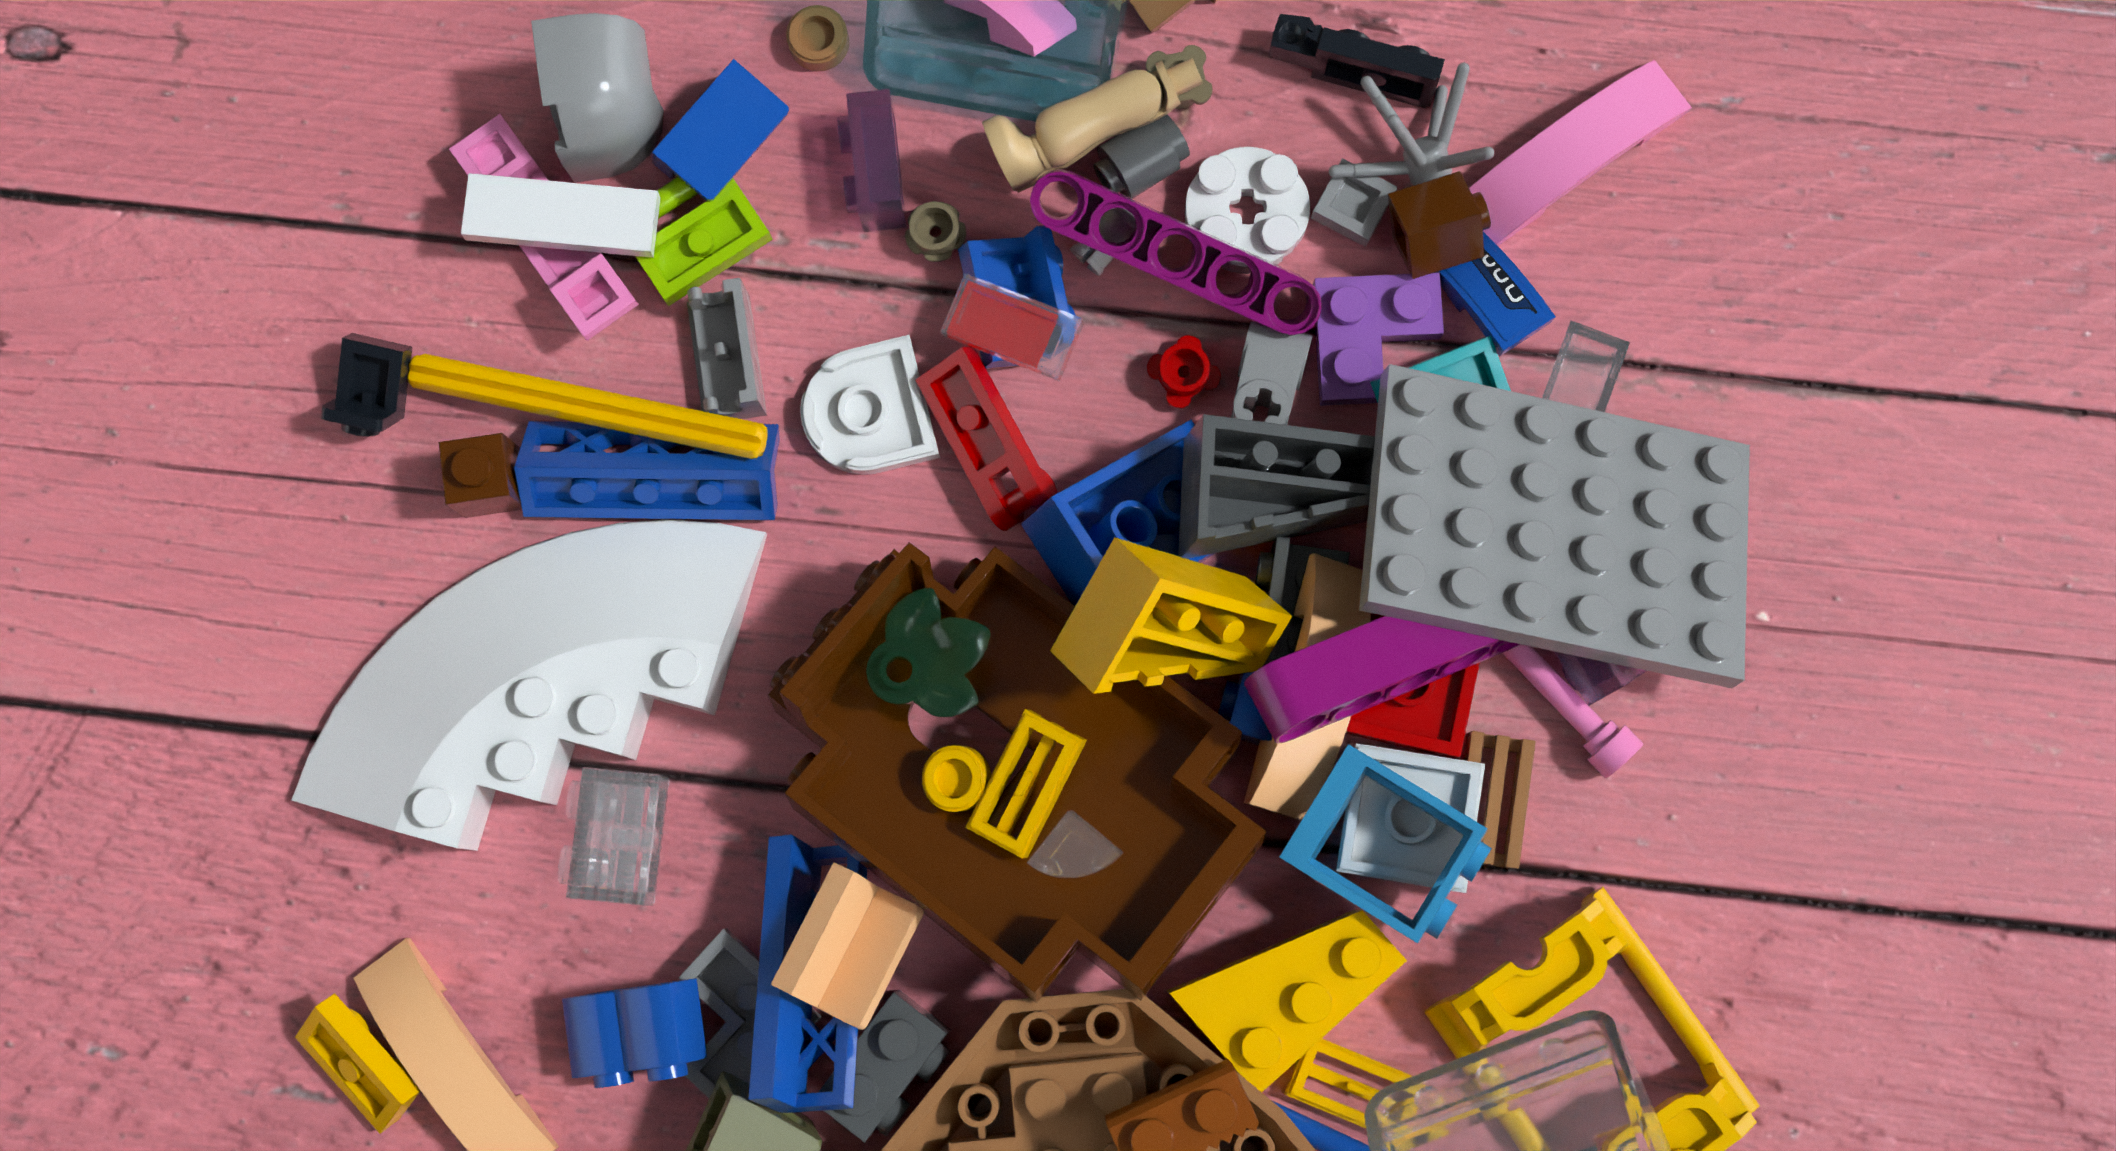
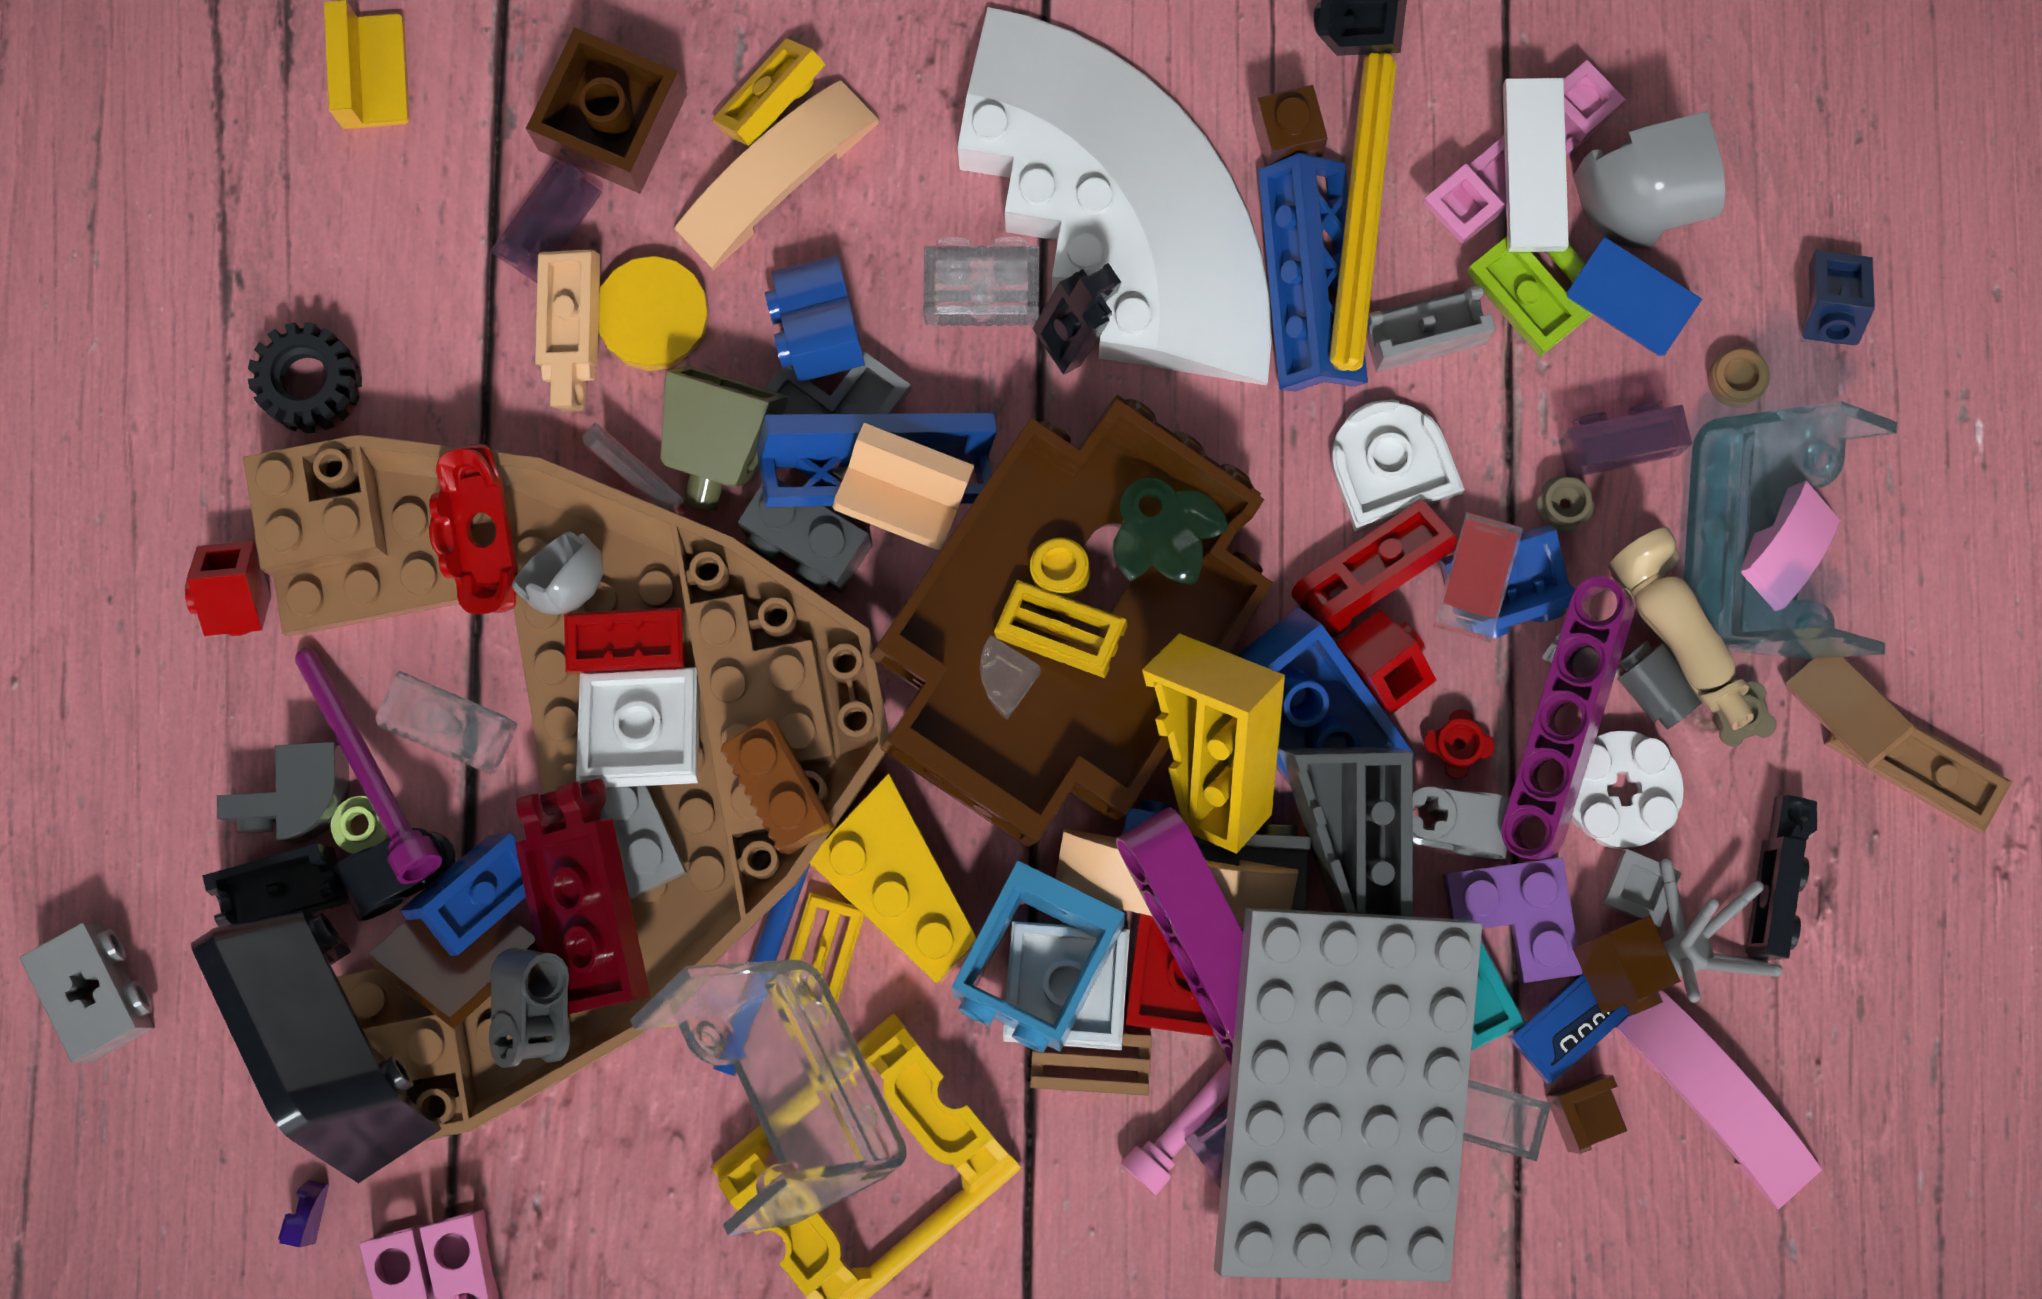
camera: 85 degrees right, 0 degrees up
(671, 731) = (1076, 316): none -> black hinge
(1090, 434) = (1388, 660): none -> red brick
(1583, 285) = (1587, 1113): none -> reddish brown panel

